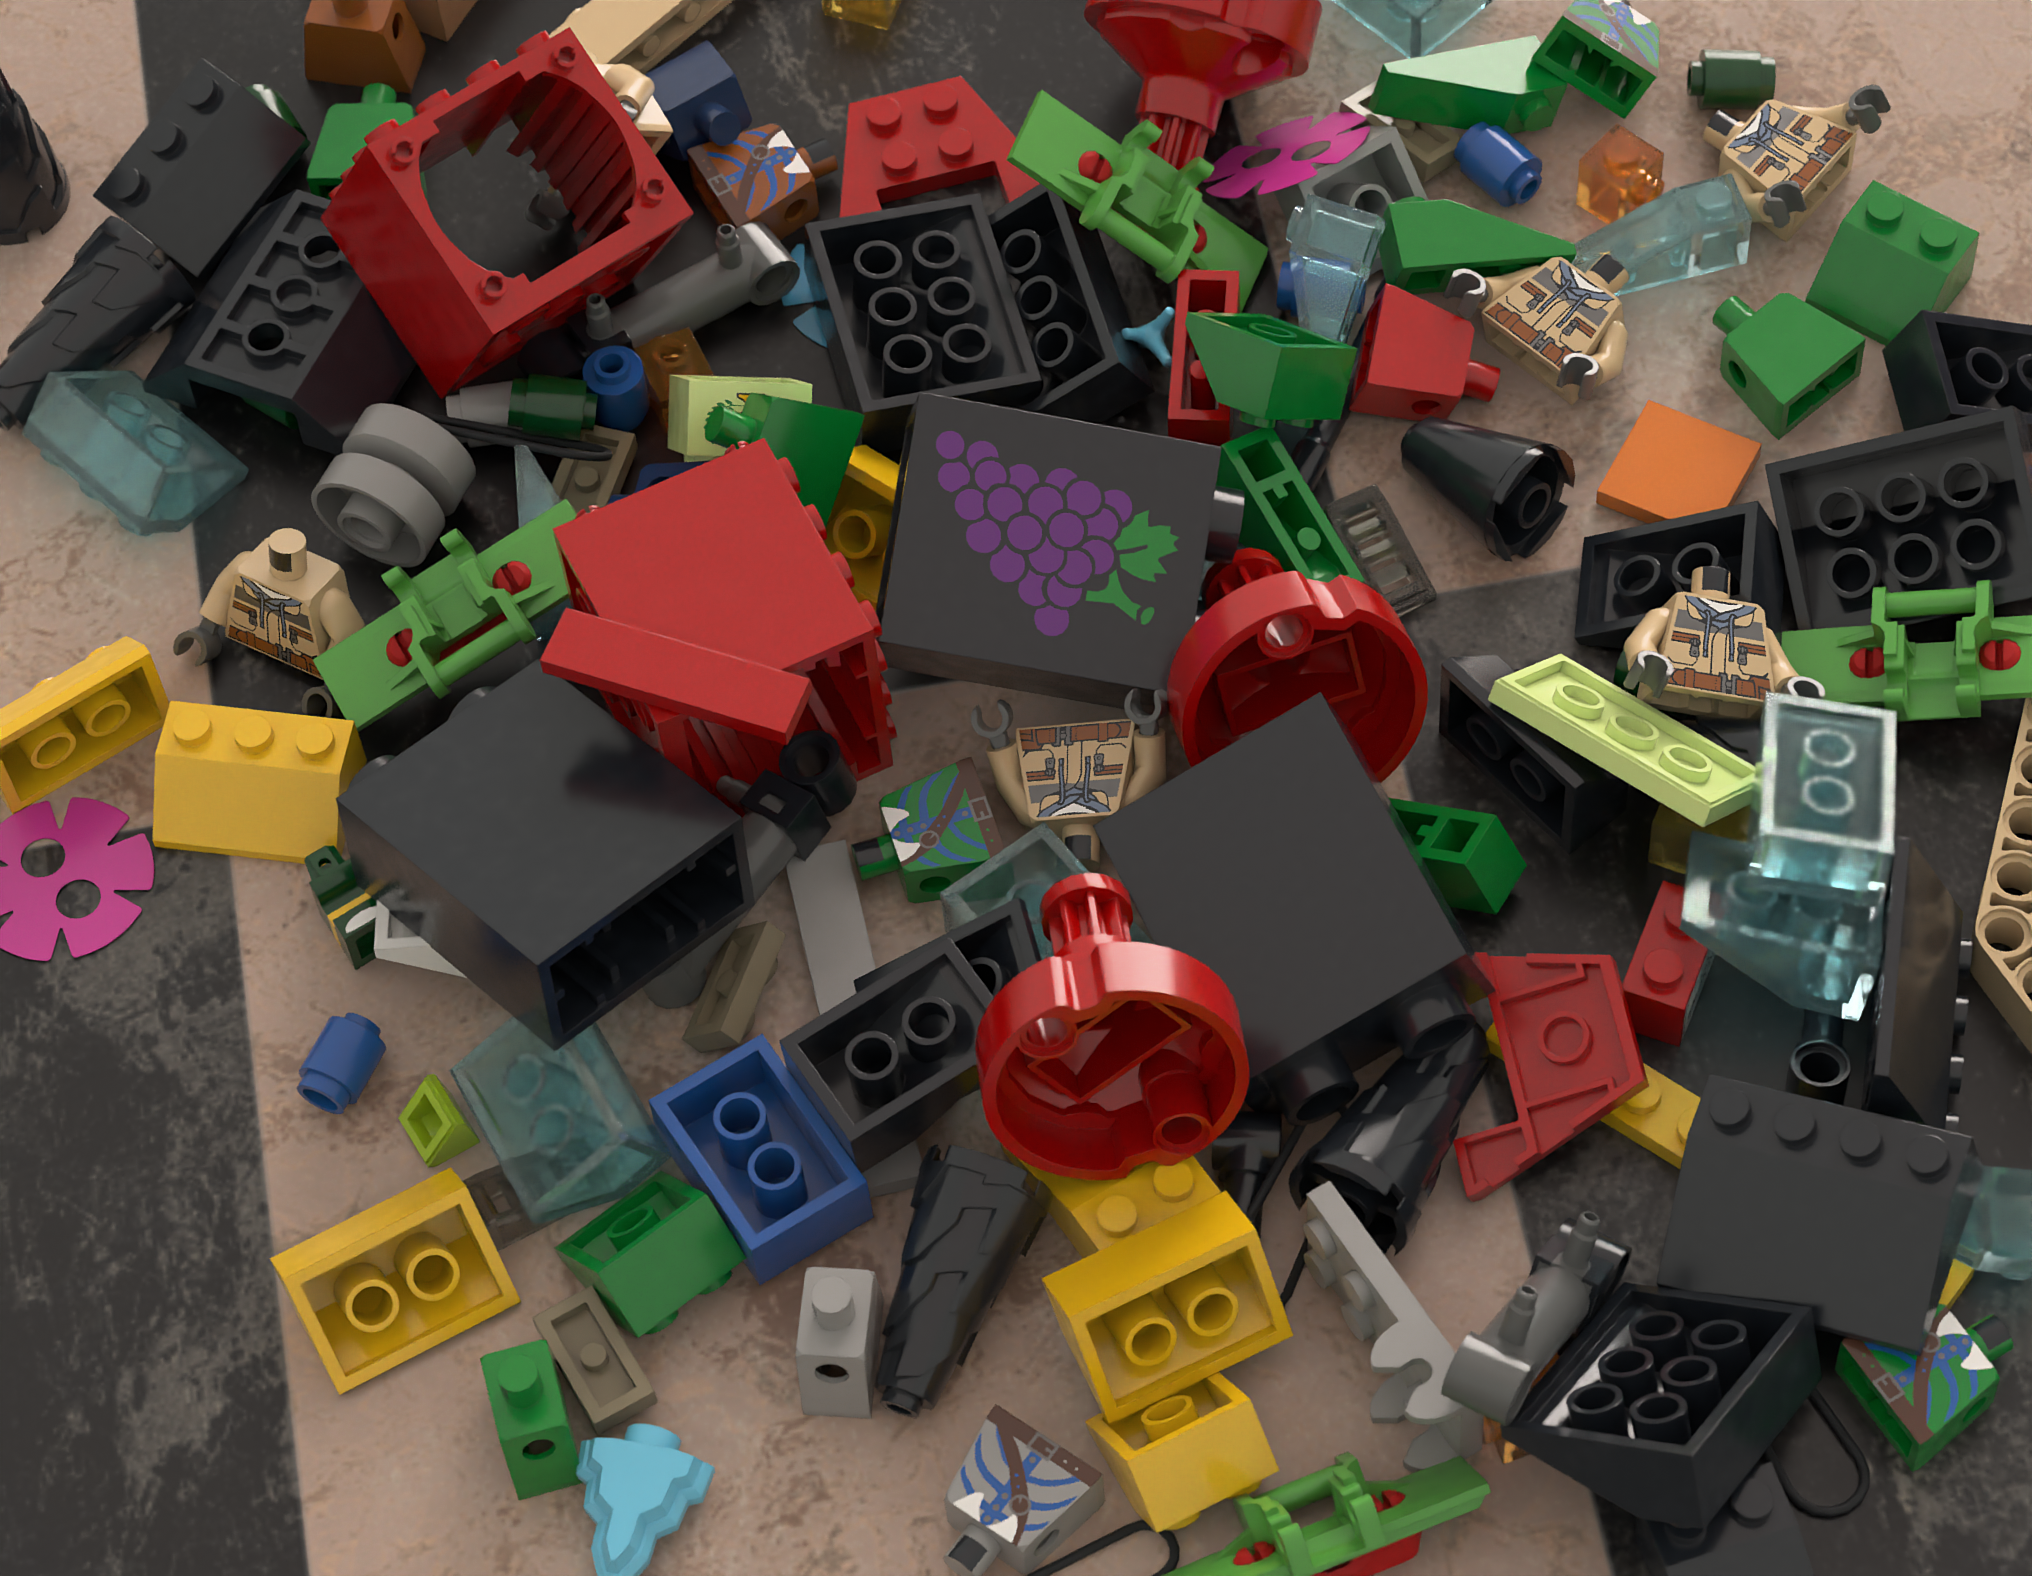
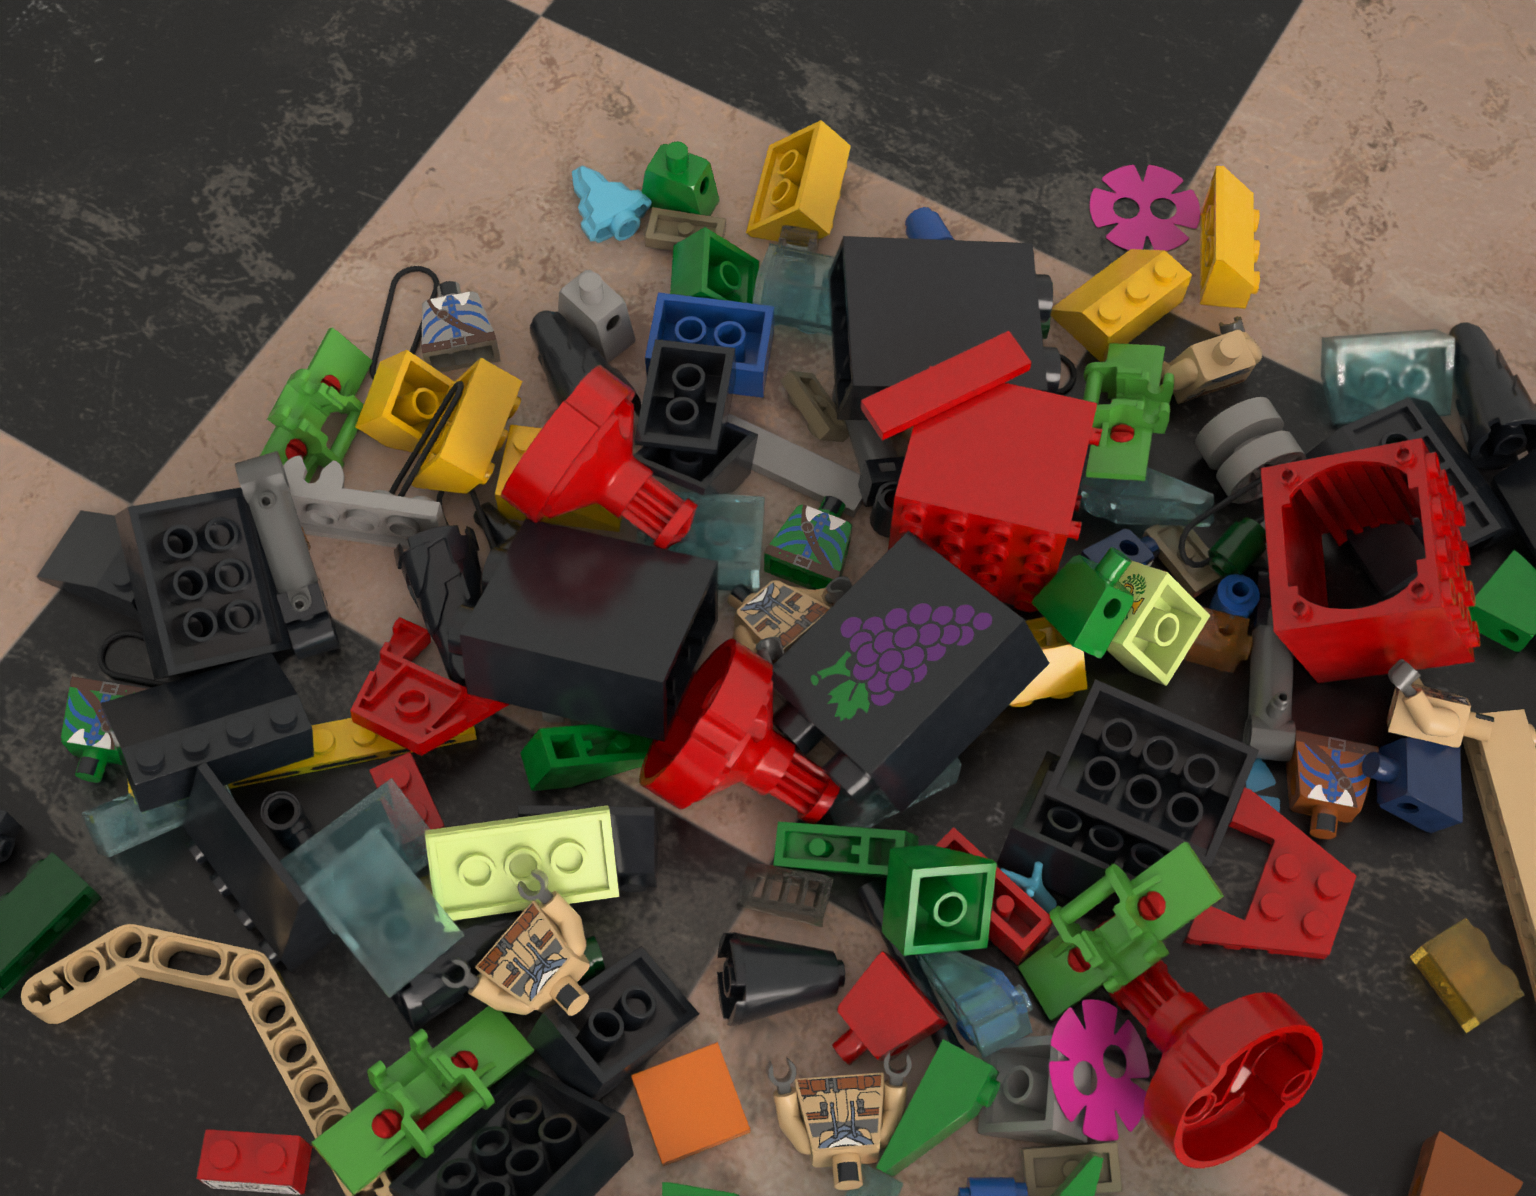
camera: 125 degrees right, 5 degrees up
(1232, 1307) = (458, 388): none -> black piece

